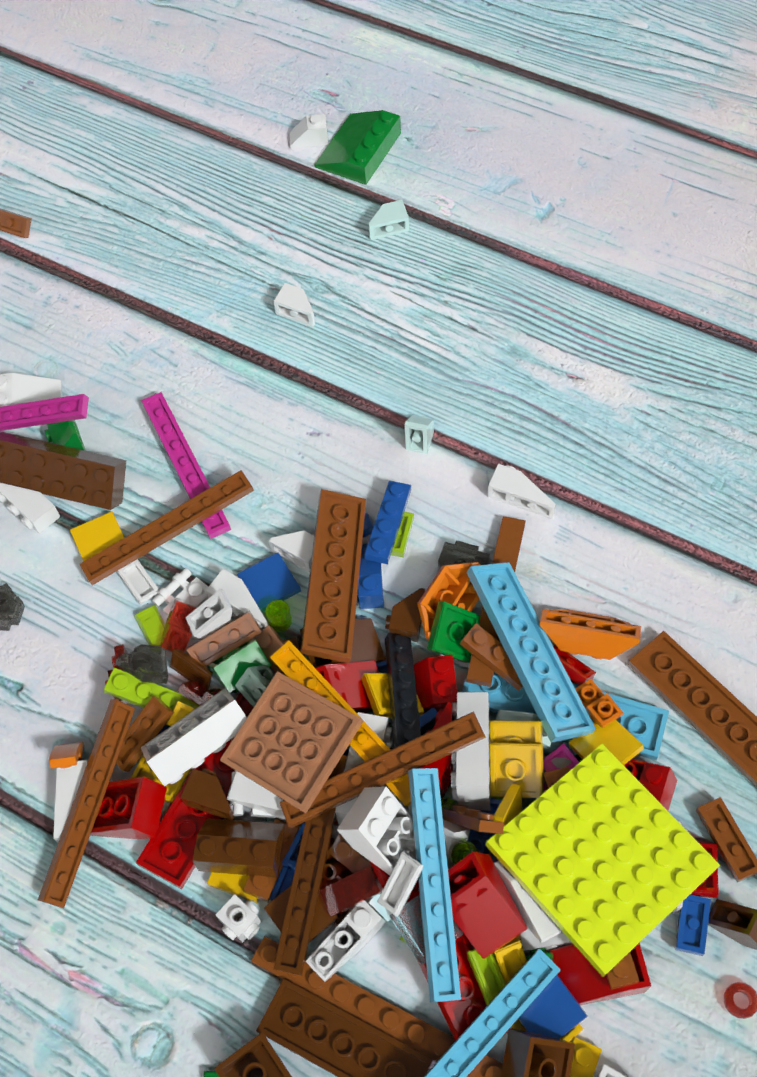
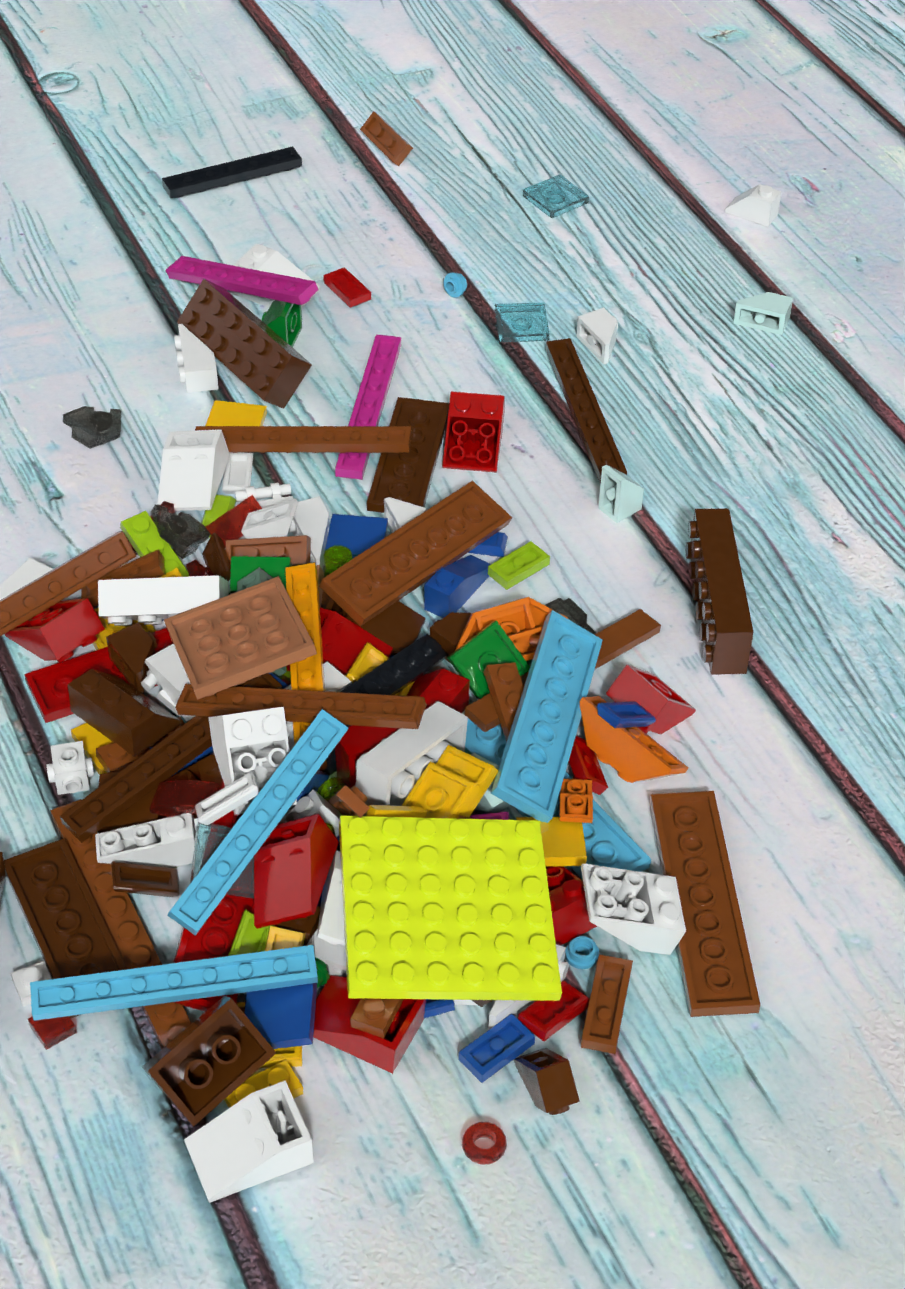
camera: 30 degrees right, 15 degrees down
(66, 755) = (41, 555): orange slope -> none
(83, 370) = (347, 287): none -> red plate
(110, 606) = (192, 468): none -> white slope
(160, 321) = (455, 284): none -> medium azure plate
(165, 201) = (555, 196): none -> clear light blue tile
(230, 325) = (521, 322): none -> clear light blue tile
(261, 510) = (410, 474): none -> reddish brown plate
(279, 443) = (474, 431): none -> red slope
(336, 375) = (584, 406): none -> reddish brown plate
(360, 145) = (800, 241): green slope -> none
(366, 969) = (145, 879): none -> reddish brown tile
(388, 522) = (515, 546): blue plate -> none
(517, 490) = (674, 592): white slope -> none
(549, 470) = (719, 592): none -> reddish brown brick
(568, 587) = (653, 696): none -> red slope
(576, 615) = (625, 714): none -> blue tile
(685, 805) = (585, 946): none -> medium azure plate
(698, 758) = (635, 907): none -> white slope

